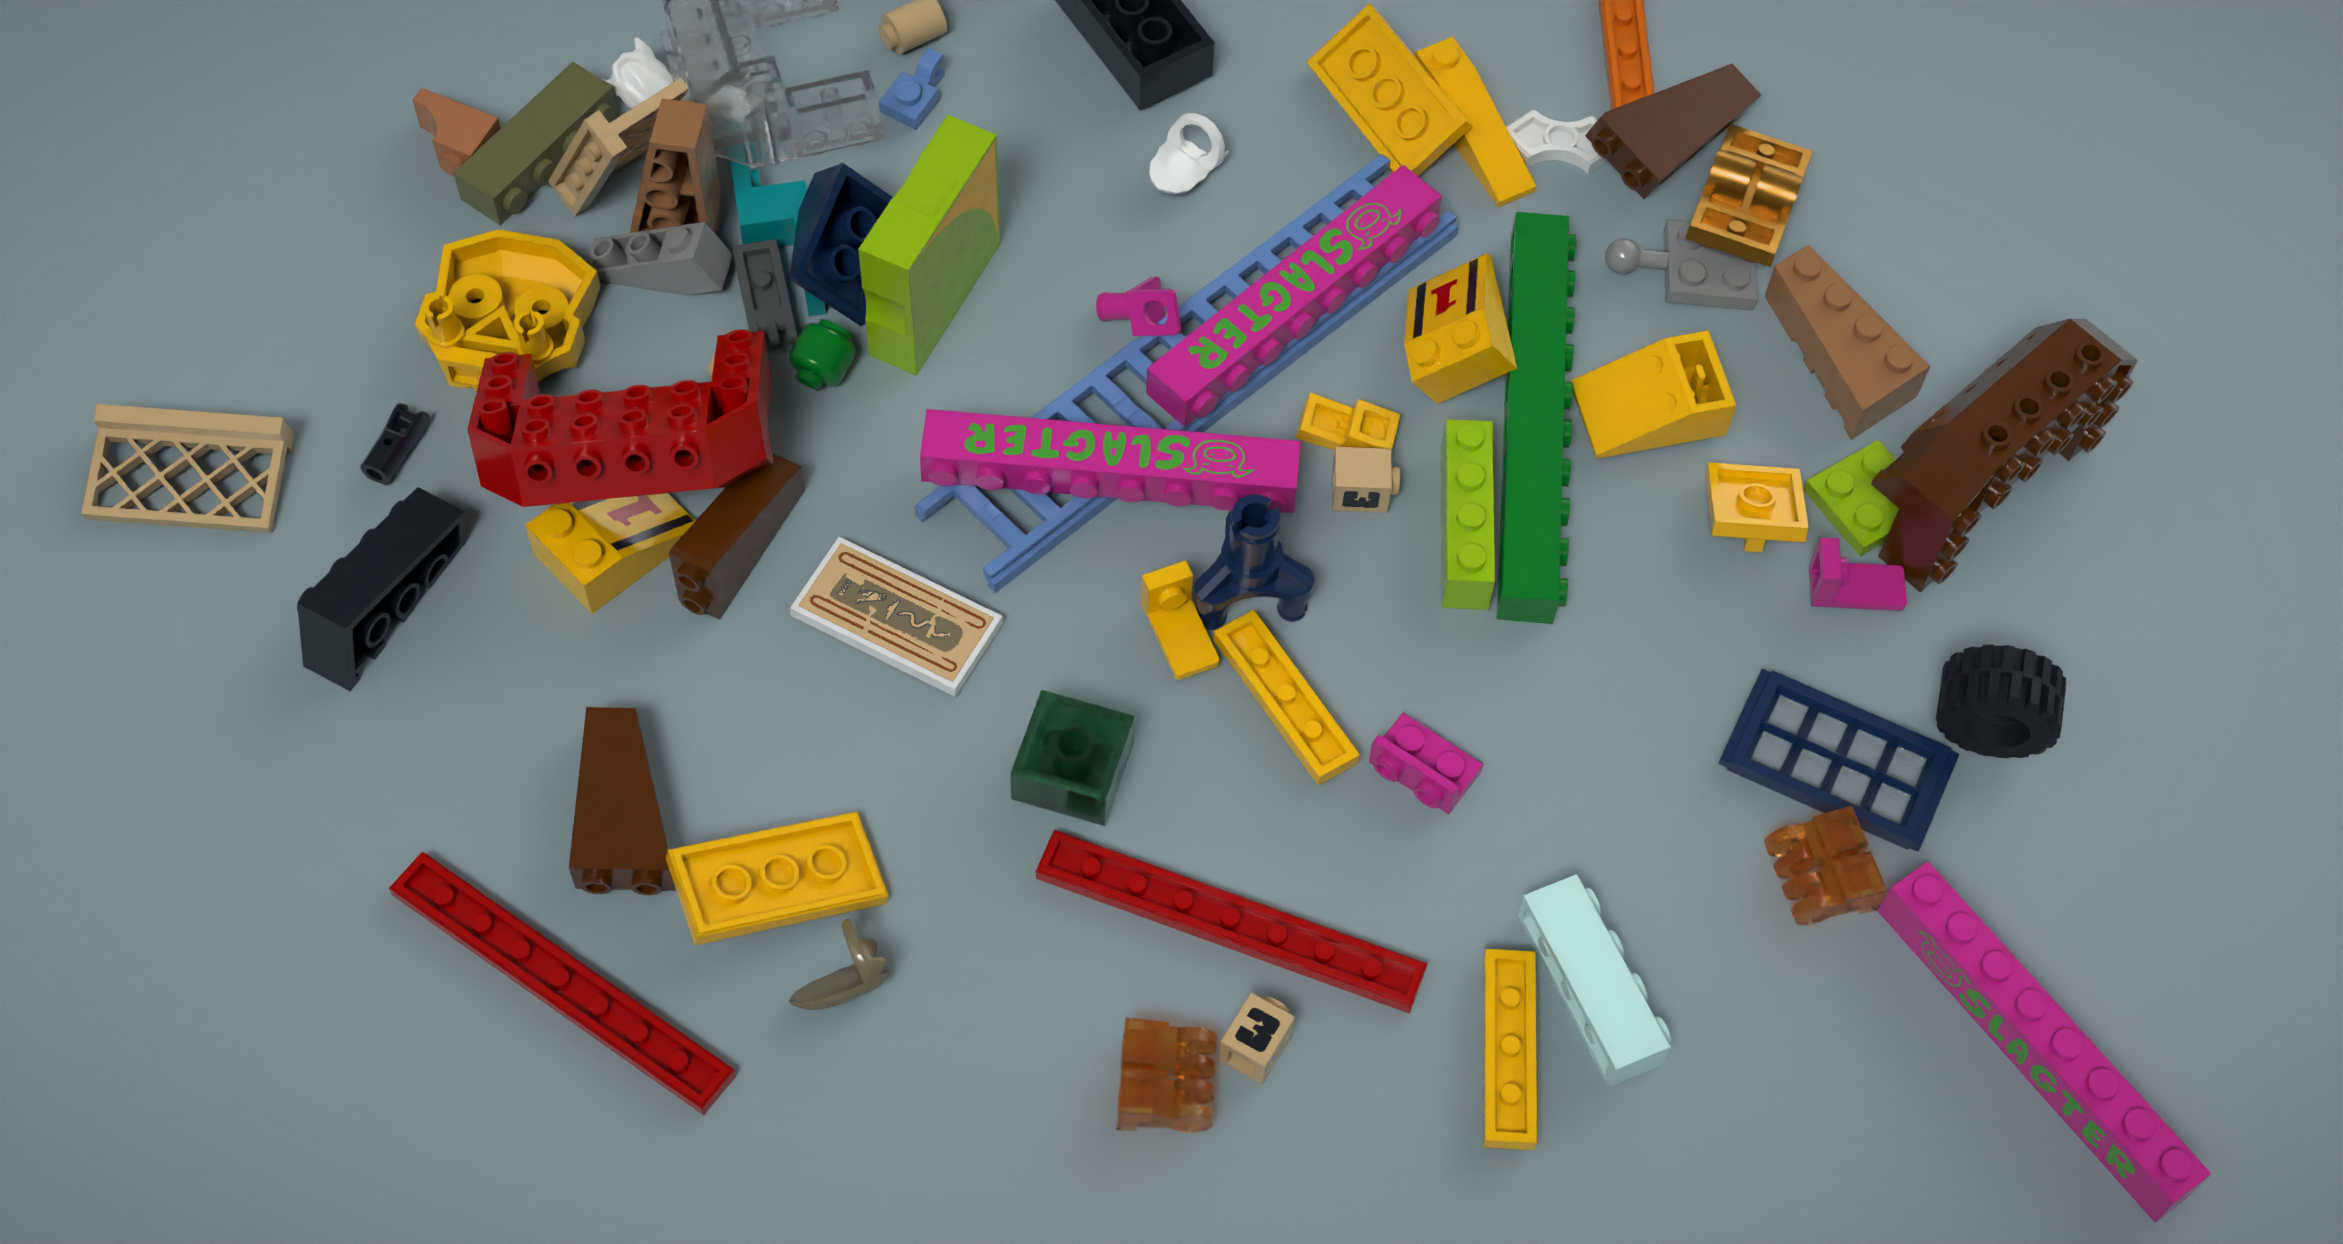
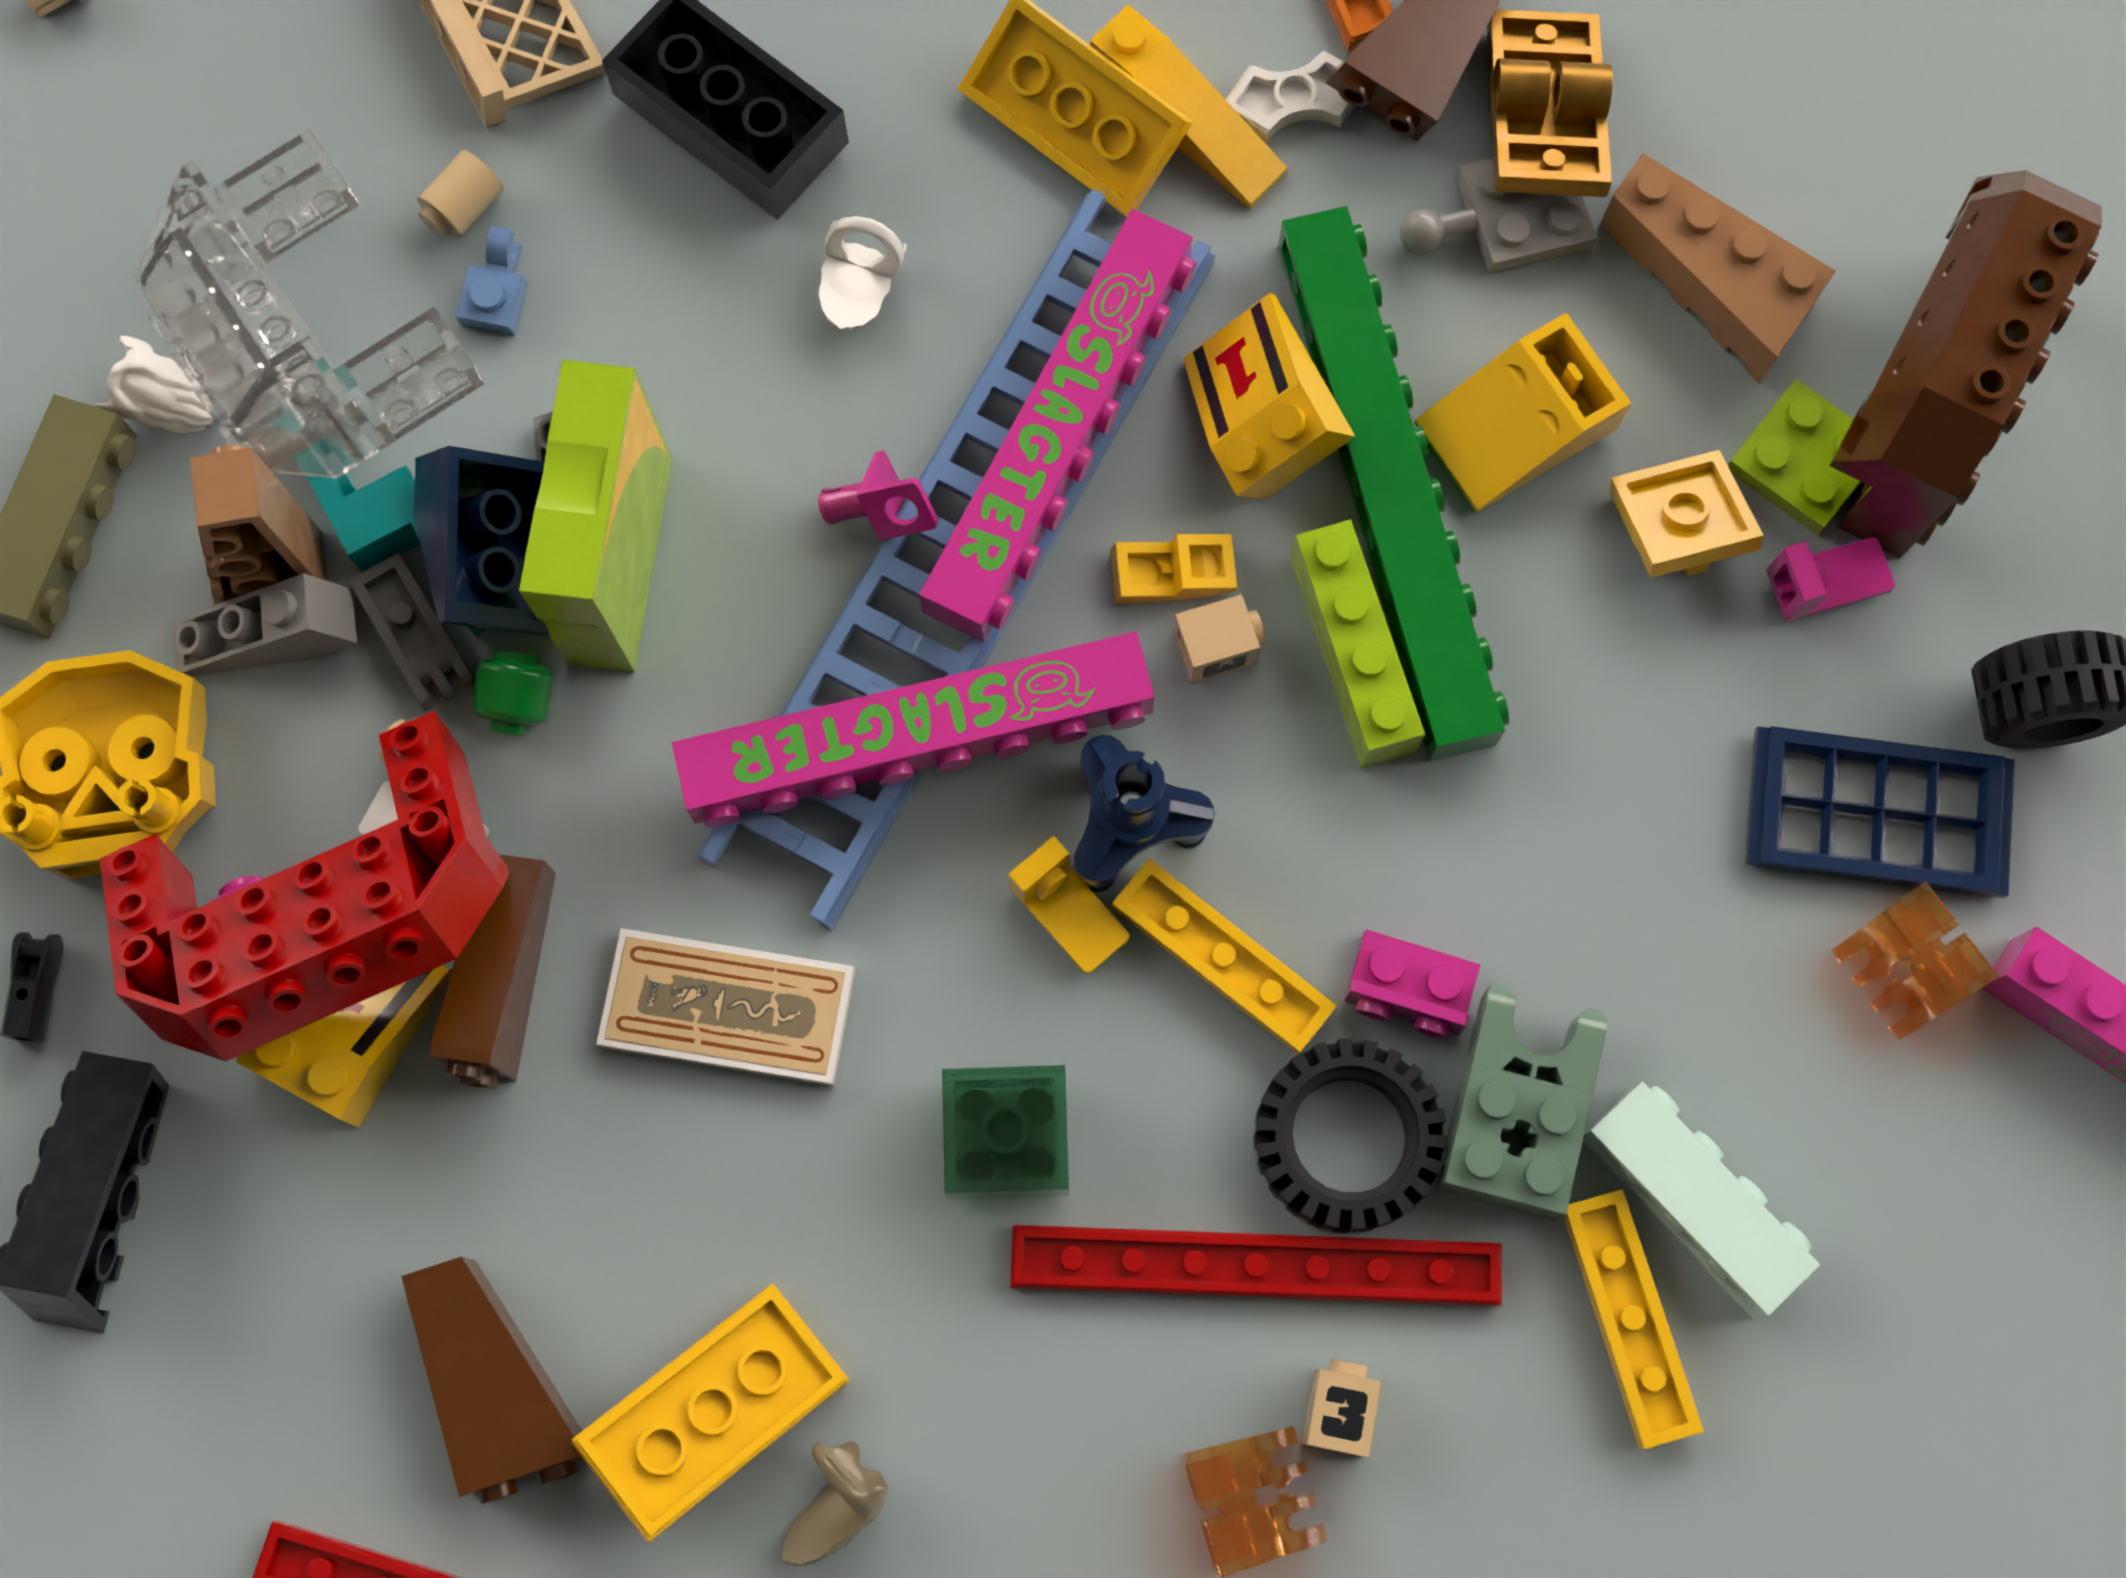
camera: 15 degrees left, 15 degrees up
(606, 147) = (131, 542): tan fence -> none
(1336, 797) = (1403, 1088): none -> black tyre
(1481, 861) = (1526, 1092): none -> sand green brick

